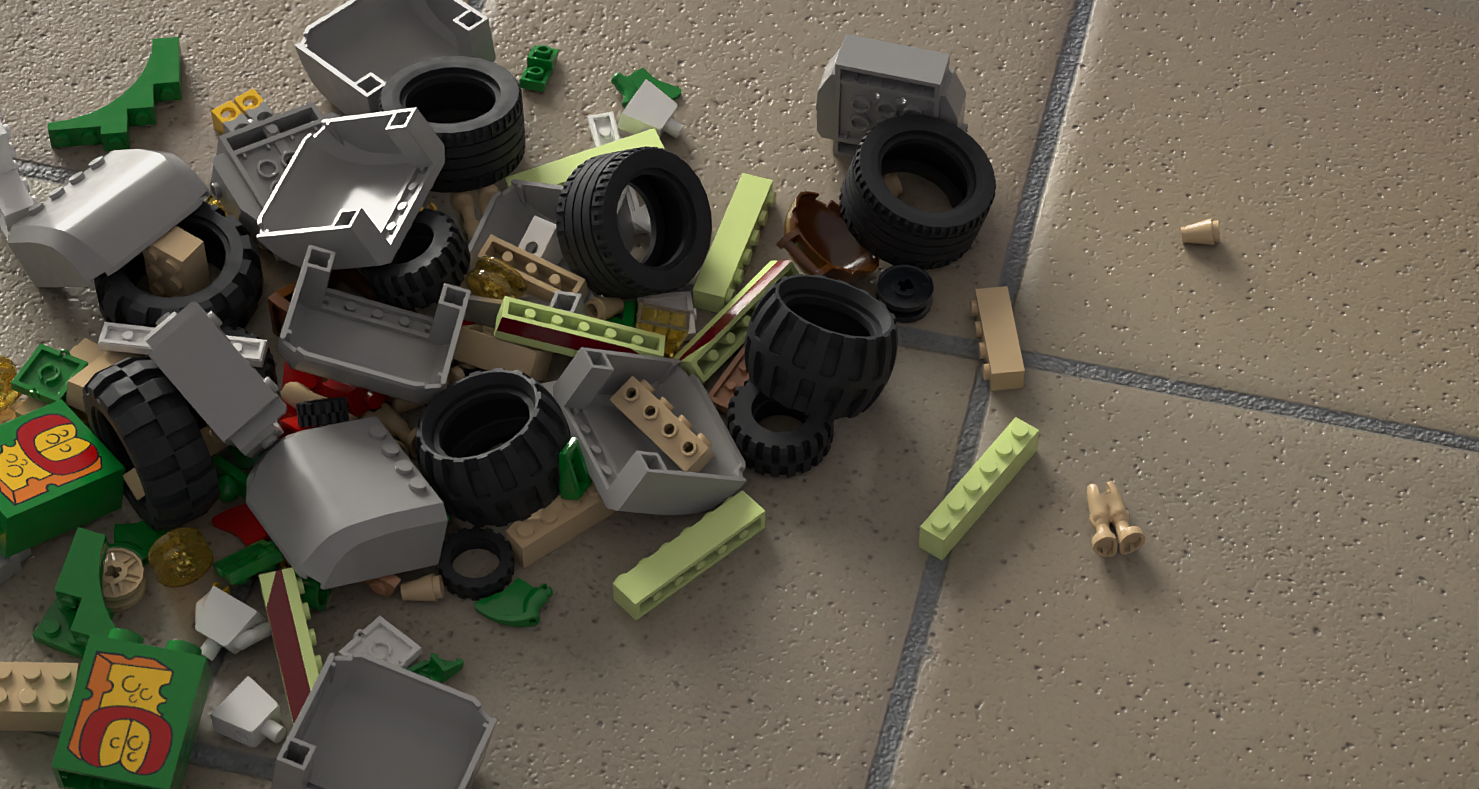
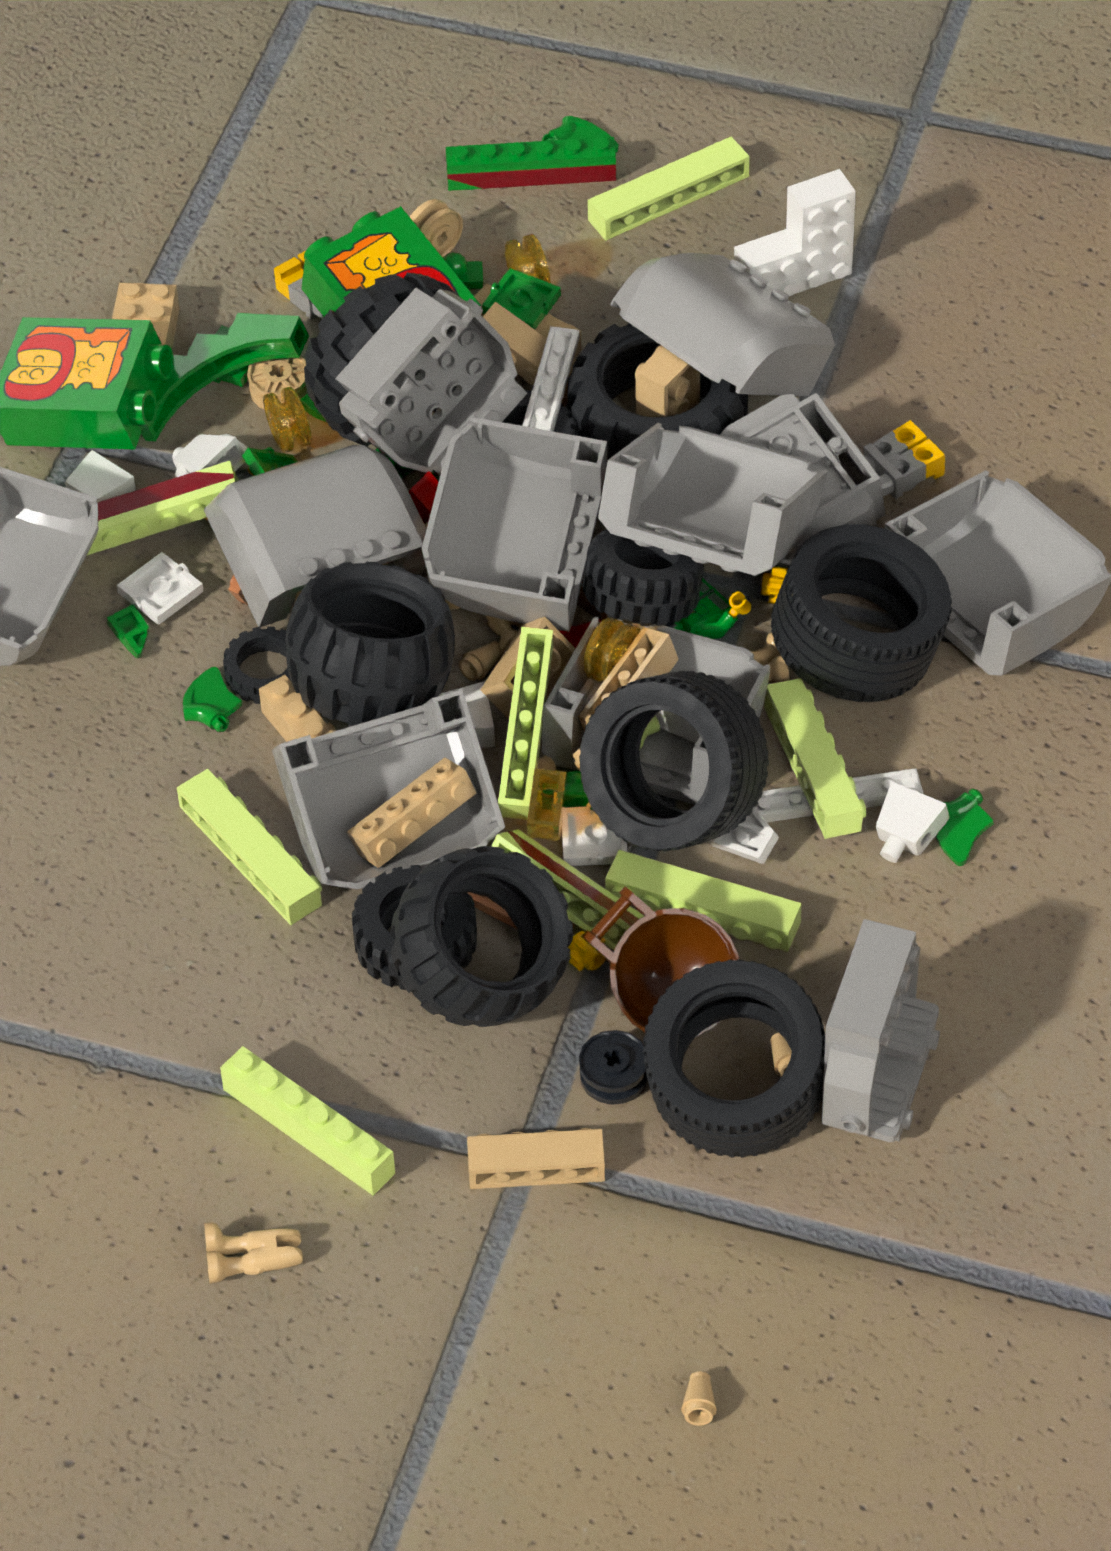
camera: 95 degrees right, 0 degrees up
(135, 107) = (967, 383): green arch -> none
(322, 411) = (420, 494): black tyre -> none
(424, 589) = (234, 621): tan cone -> none
(539, 68) = (1003, 727): green slope -> none
(573, 471) = (321, 724): green slope -> none

